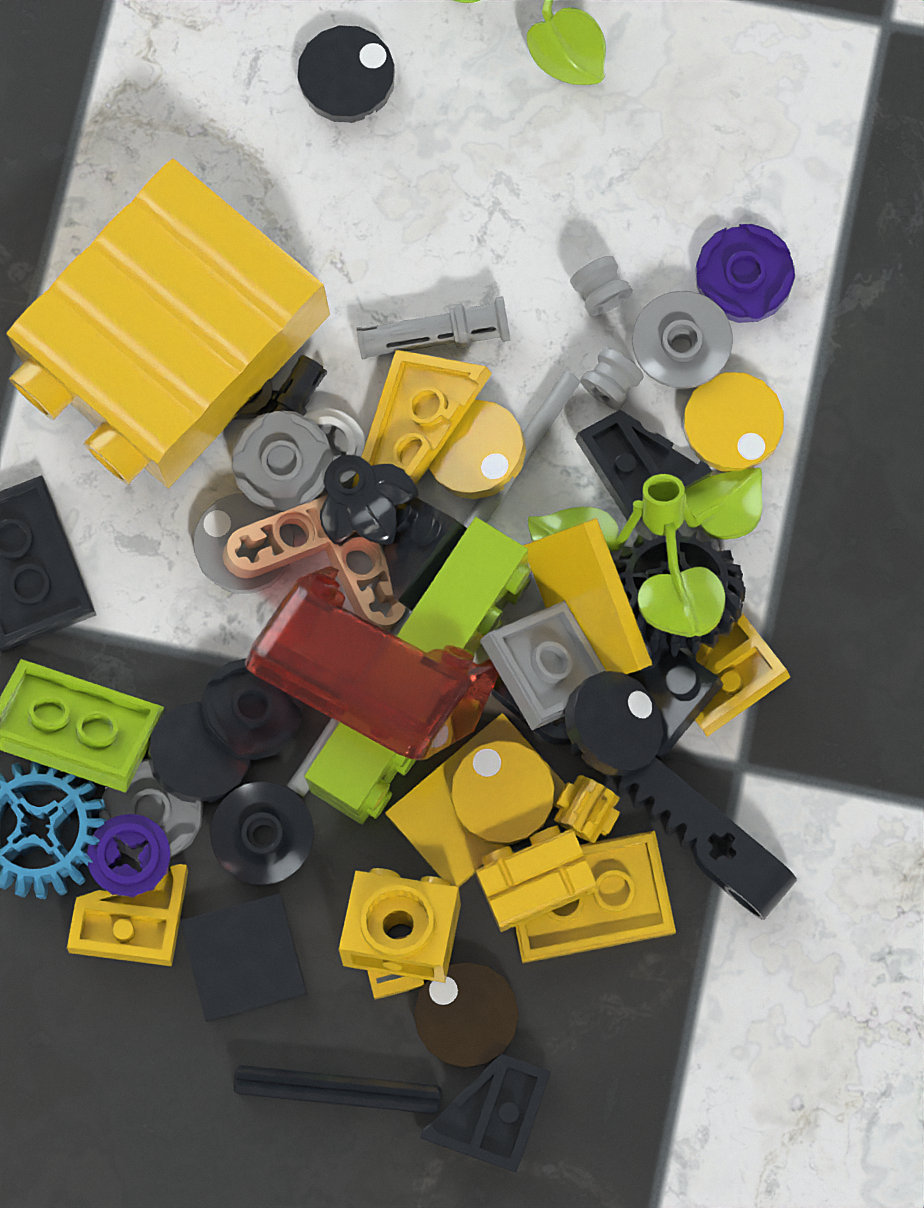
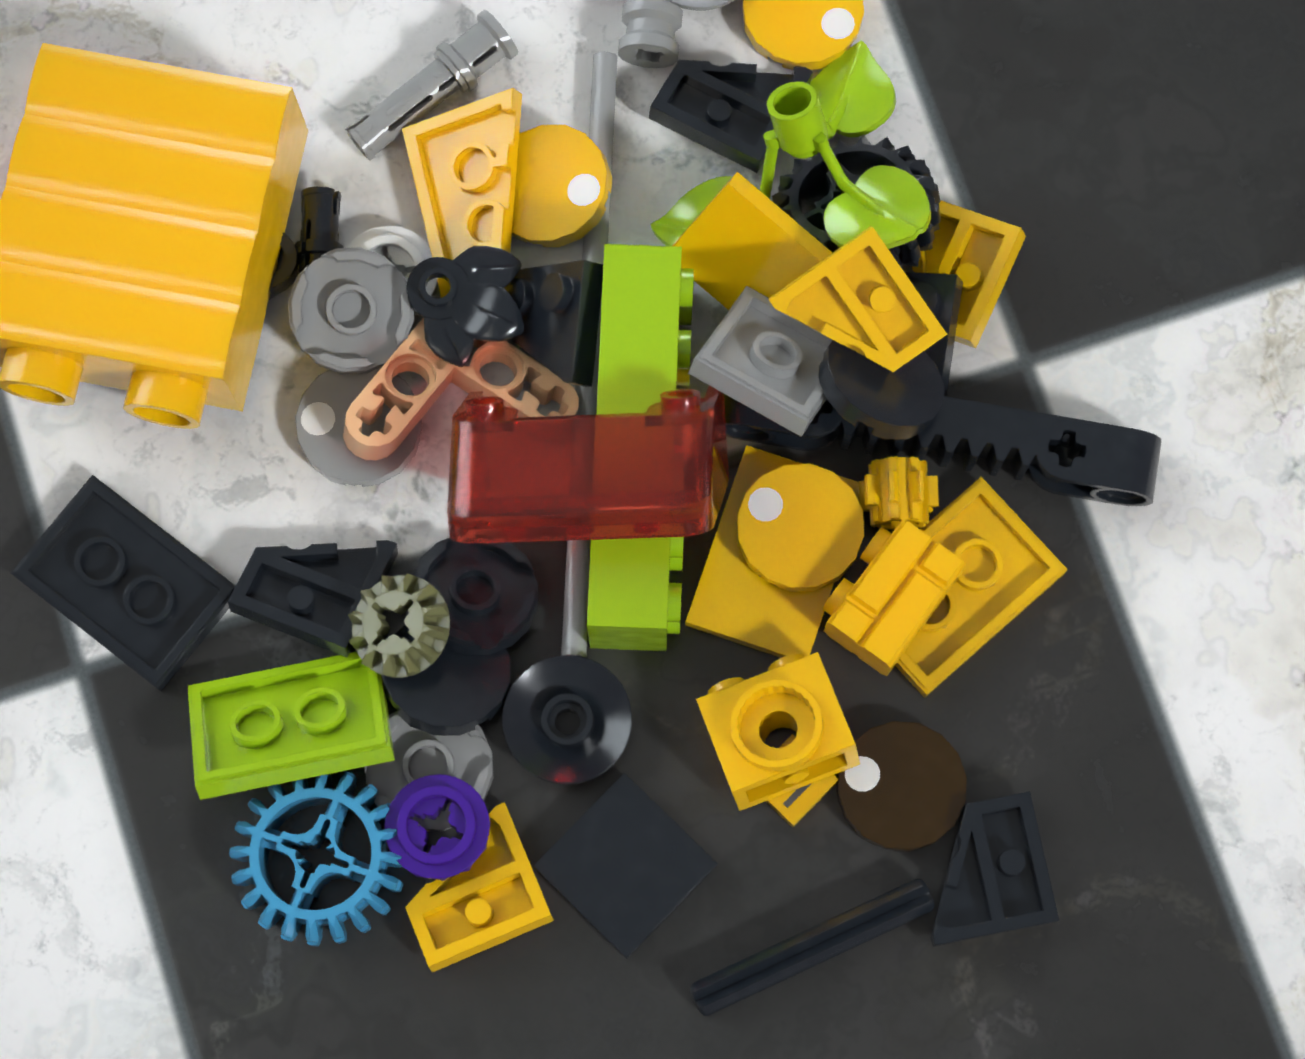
camera: 35 degrees left, 0 degrees up
(144, 643) = (310, 589): none -> black wing
(202, 709) = (426, 621): none -> olive gear
(629, 661) = (863, 303): none -> yellow wing

